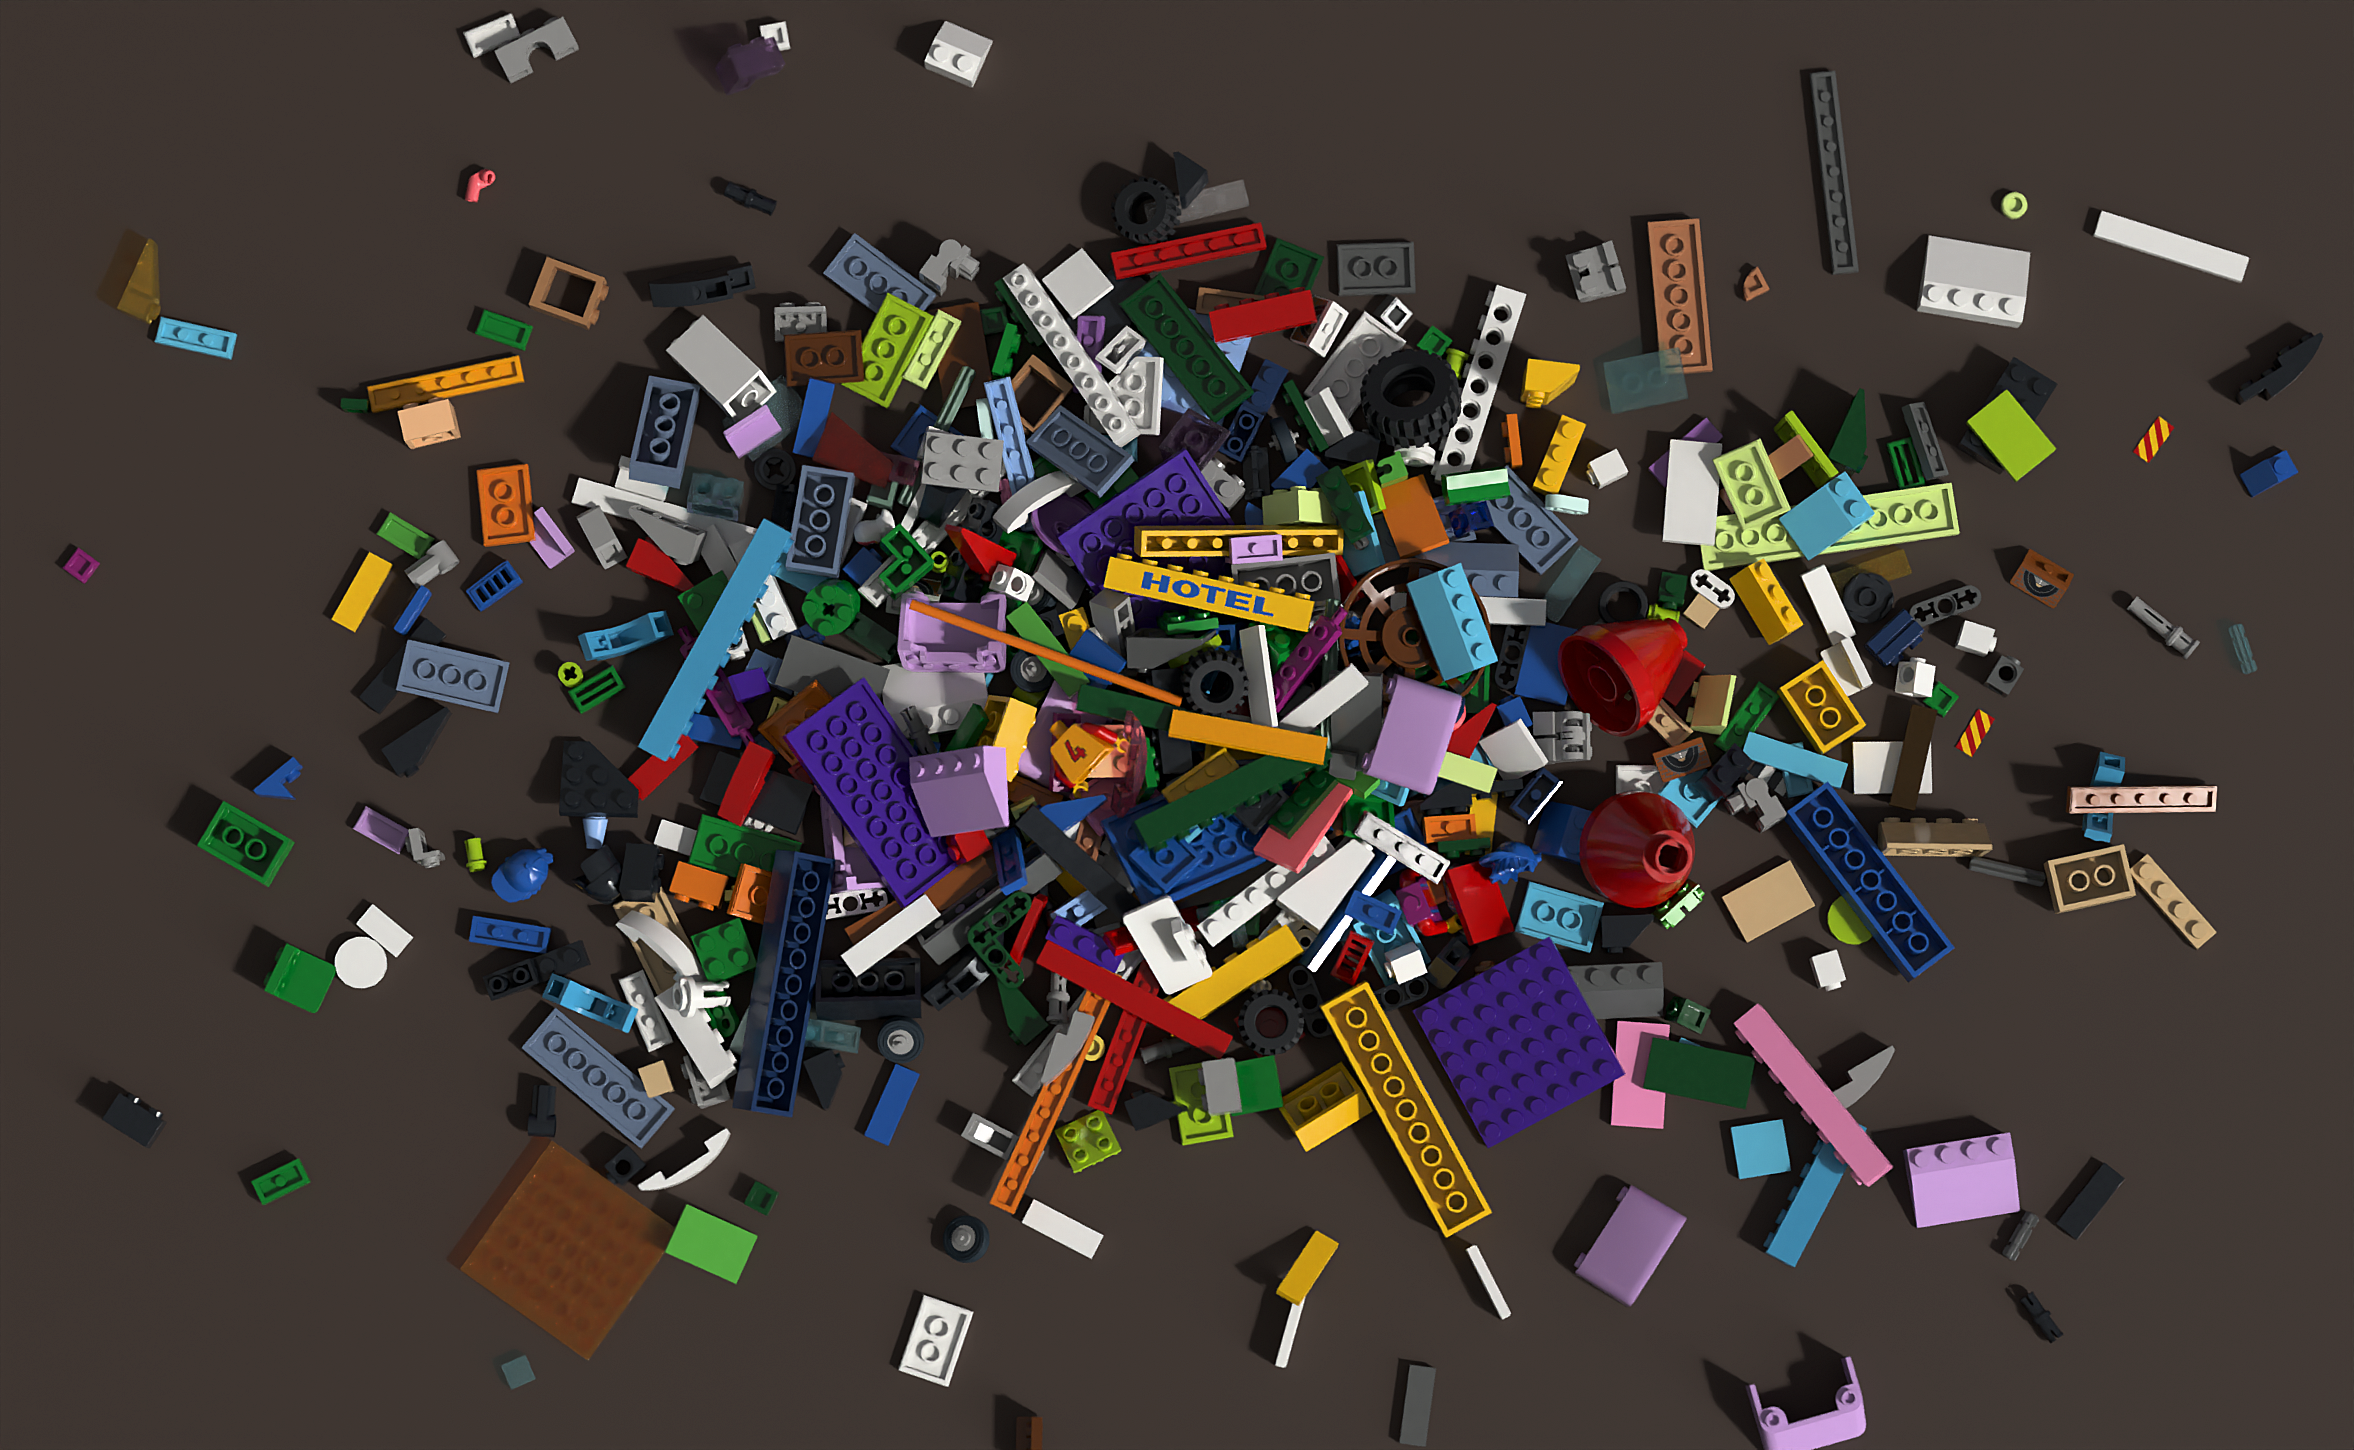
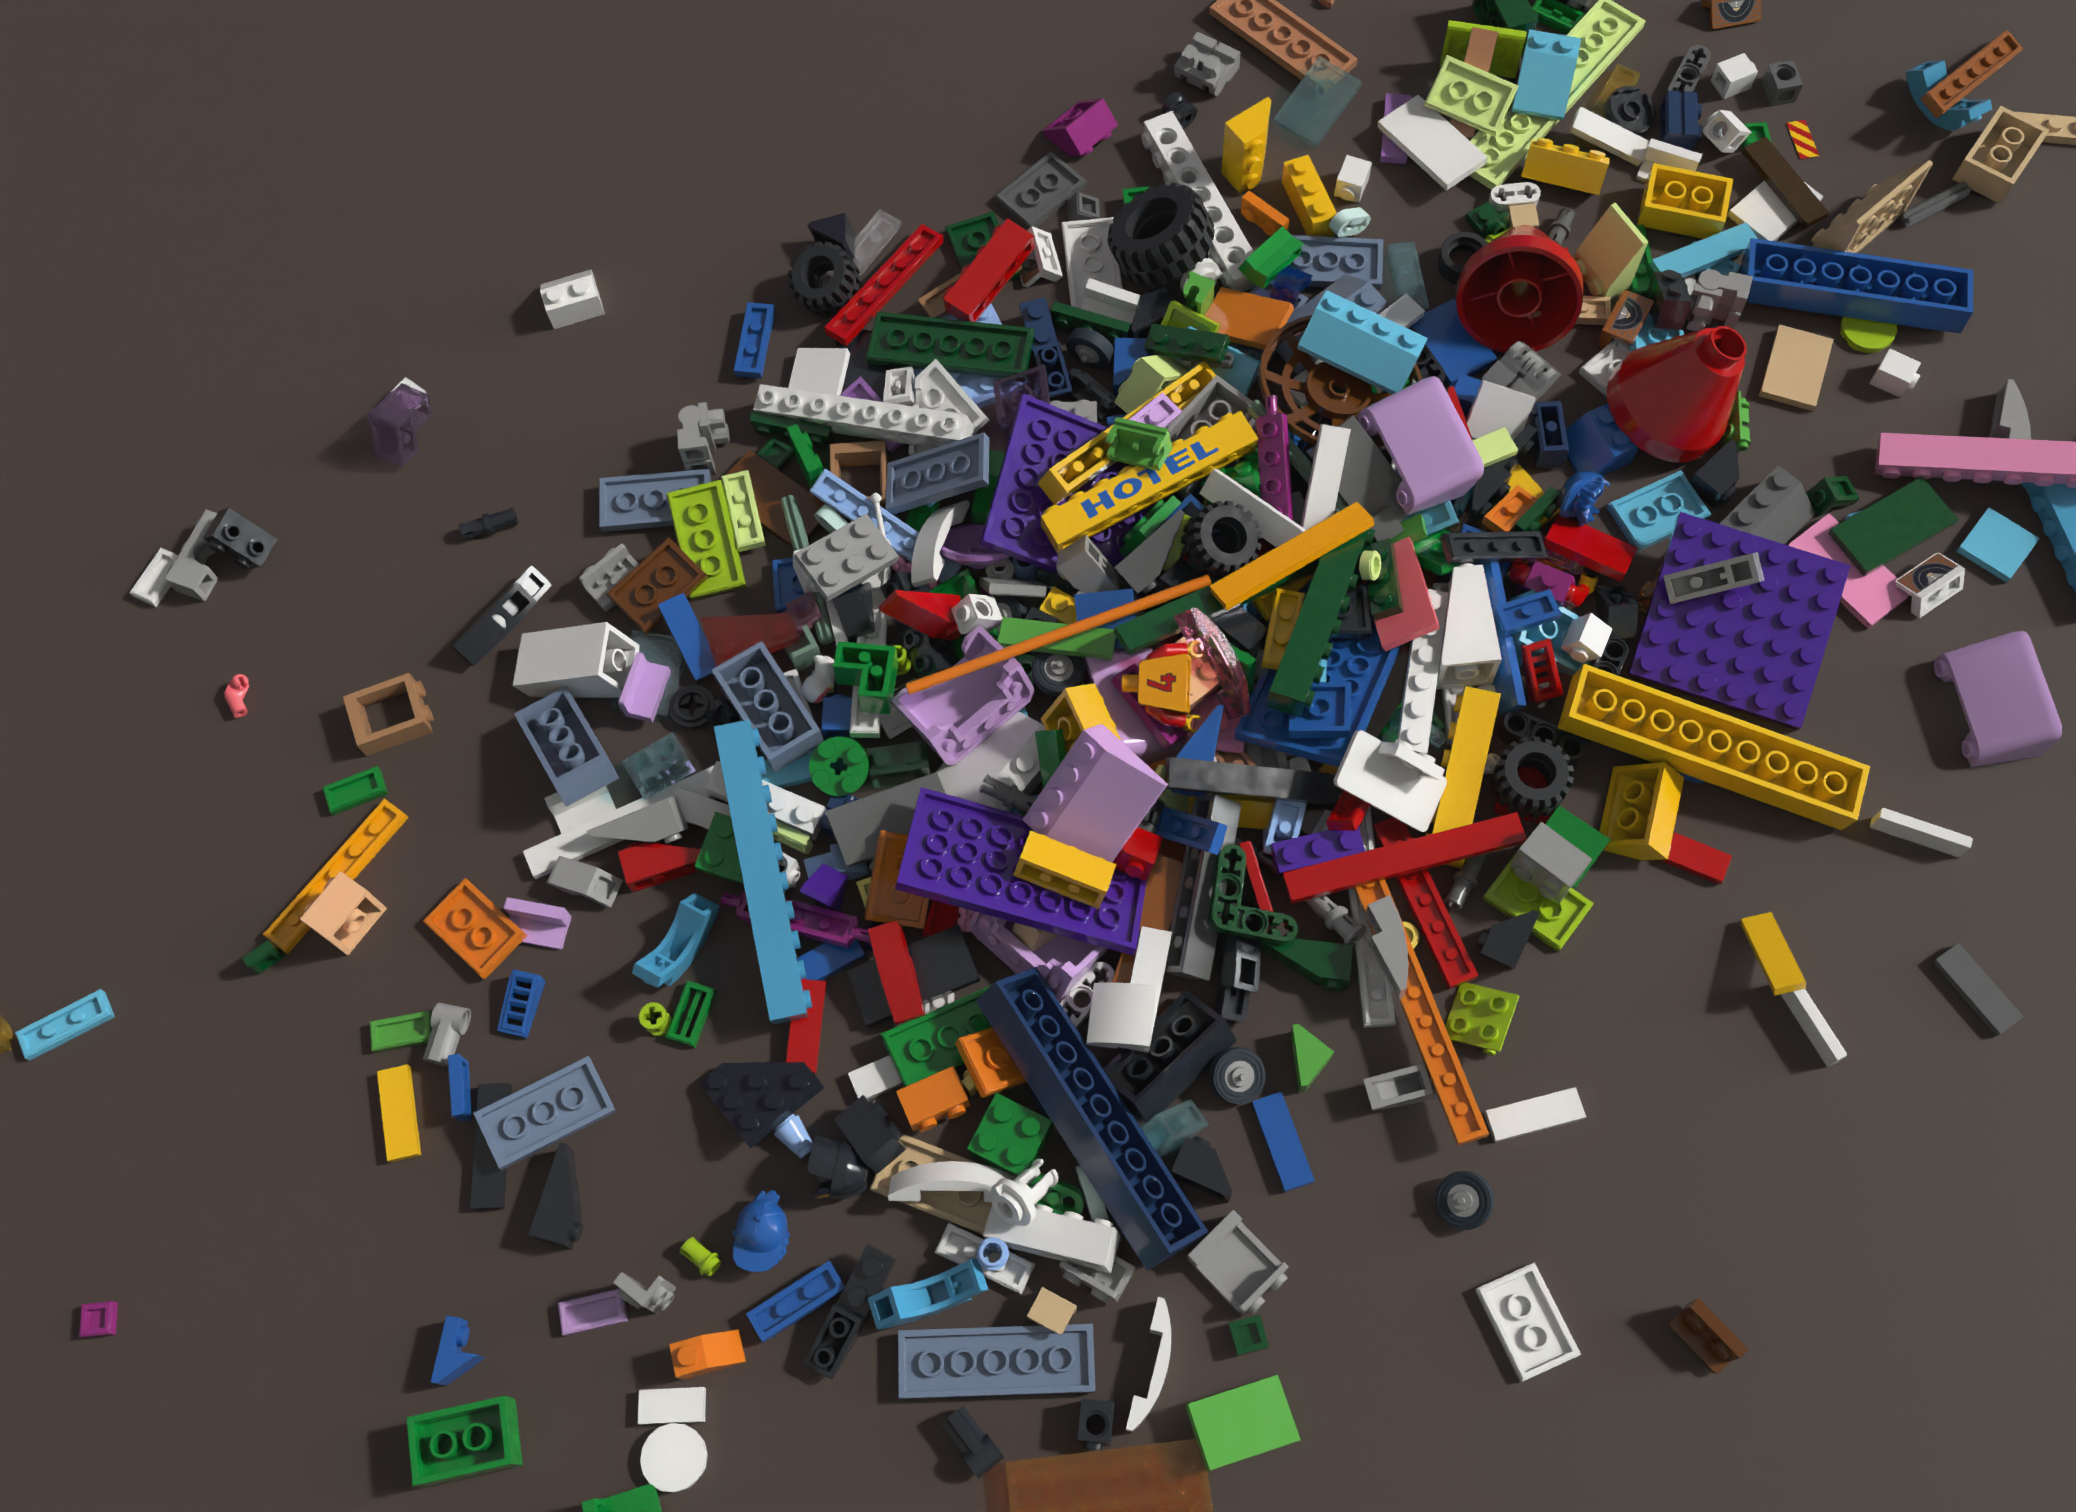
camera: 35 degrees left, 15 degrees down
(430, 919) = (707, 1354): none -> orange slope
(568, 64) = (240, 539): none -> black brick
(641, 1013) = (990, 1246): none -> light blue cone
(794, 1152) = (1238, 1264): none -> light grey panel
(859, 939) = (1121, 1015): none -> white slope
(905, 816) = (1064, 869): none -> yellow brick
(956, 1069) = (1309, 1056): none -> bright green slope
(1023, 430) = (875, 499): none -> white hinge
(1057, 212) = (754, 340): none -> blue plate
(1219, 565) = (1138, 444): none -> bright green hinge
(1296, 788) = (1370, 565): none -> yellowish green tile
(1330, 1168) = (1698, 858): none -> red tile
(1452, 241) = (1081, 127): none -> magenta slope
(1520, 1003) = (1714, 578): none -> light grey slope
(1538, 293) = (1182, 110): none -> black wheel
(1680, 1133) = (1931, 583): none -> panel
(1711, 647) = (1560, 229): none -> dark grey pin

